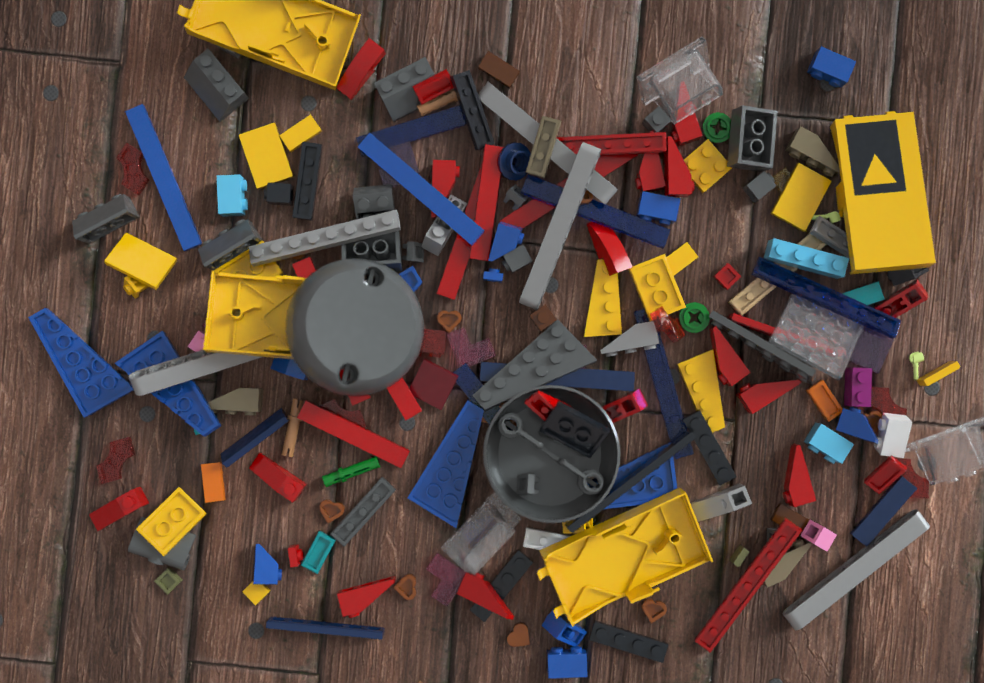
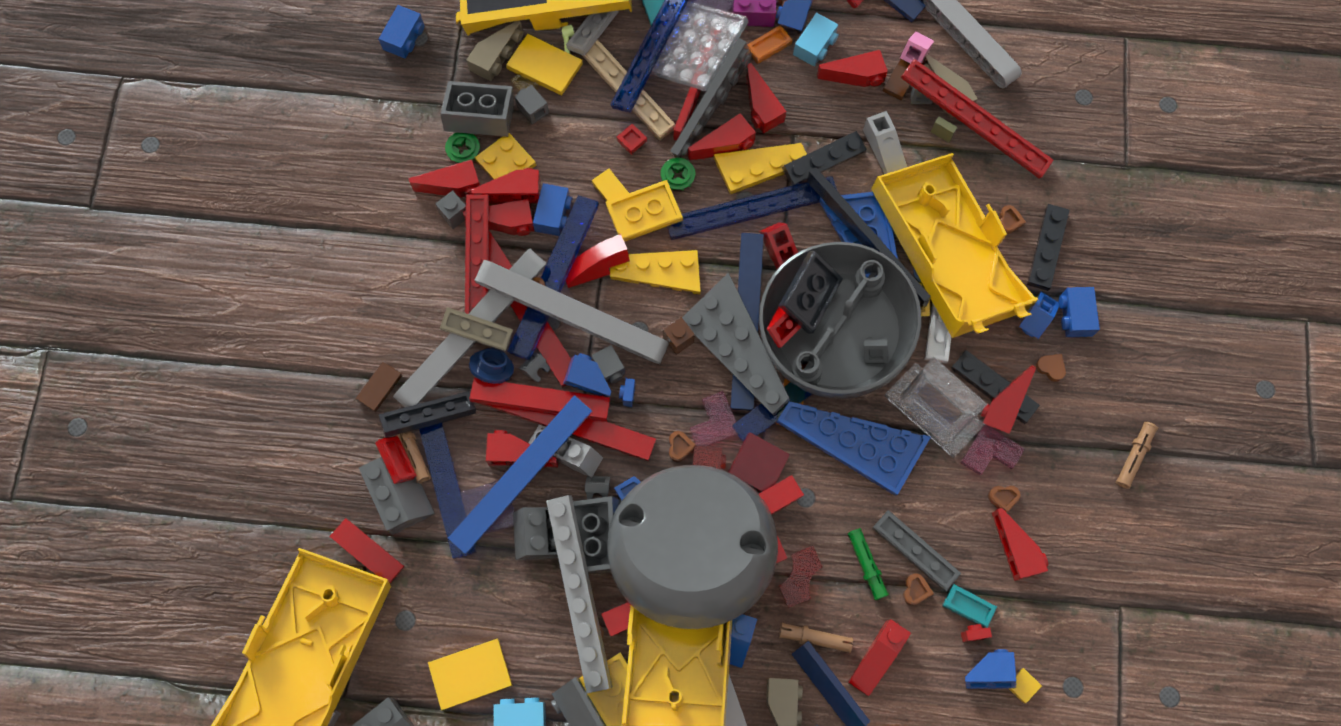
camera: 90 degrees left, 15 degrees down
(279, 194) = (520, 655): black brick -> none
(300, 132) = (443, 629): yellow tile -> none
(307, 181) = (505, 619): black plate -> none
(325, 627) = (1062, 600): dark blue tile -> none
(353, 433) = (821, 561): red tile -> none
(637, 336) = (700, 231): light grey slope -> none
(667, 324) = (686, 198): clear red tile -> none
(681, 82) = (410, 179): clear windscreen -> none
(806, 258) = (613, 56): medium azure brick -> none

